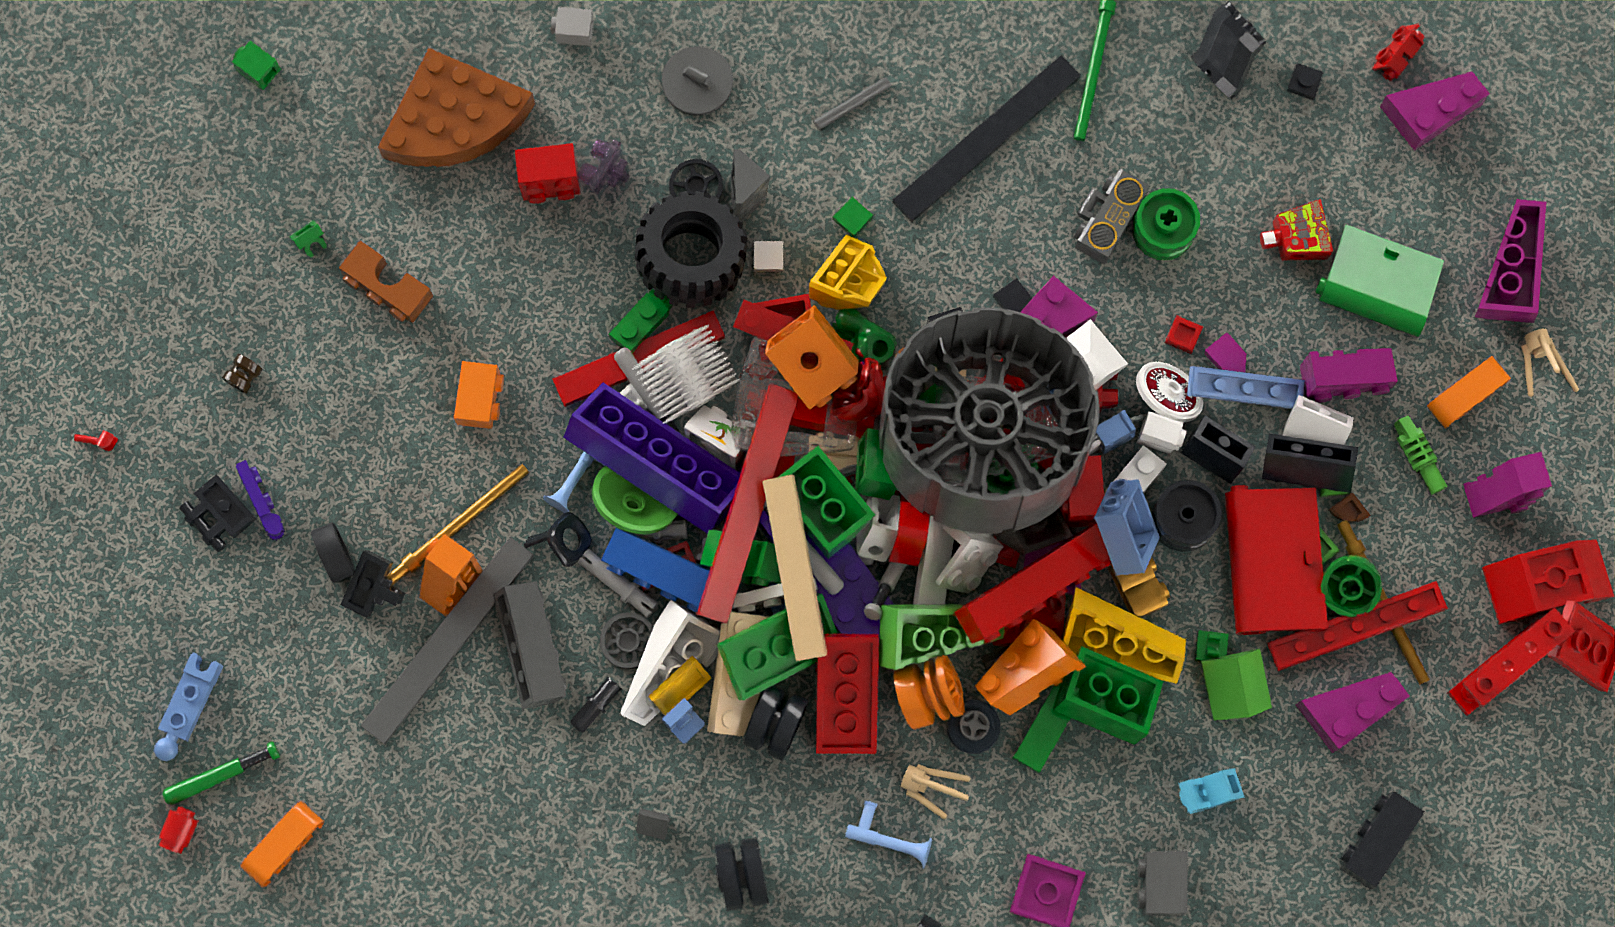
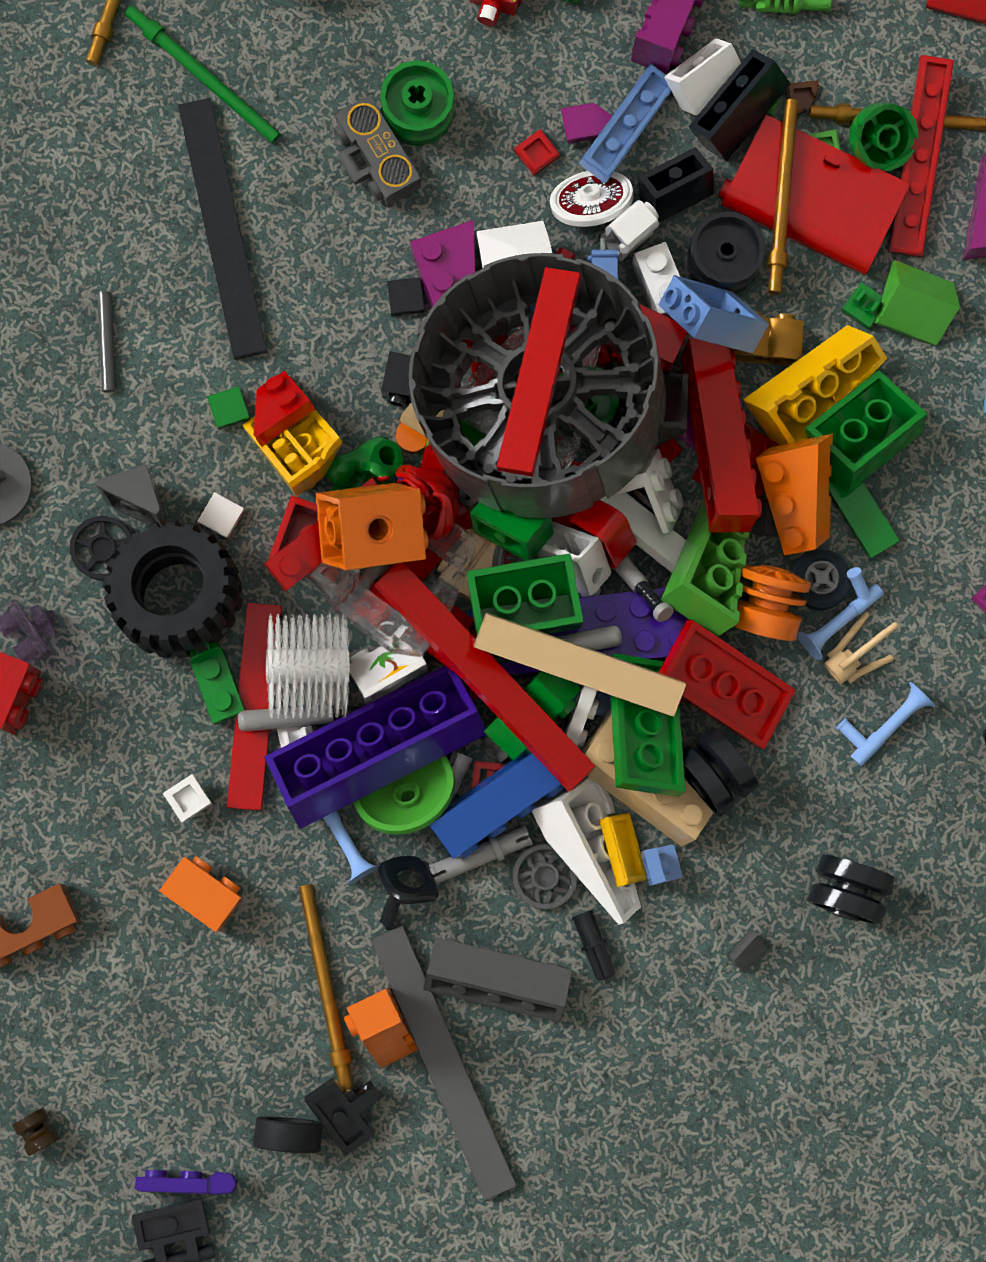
camera: 65 degrees left, 5 degrees up
(542, 346) = (187, 798): none -> white tile
(871, 250) = (279, 407): none -> red wing
(978, 769) = (865, 598): none -> light blue piece
(990, 406) = (539, 372): none -> red tile
(1204, 555) = (777, 257): none -> pearl gold bar

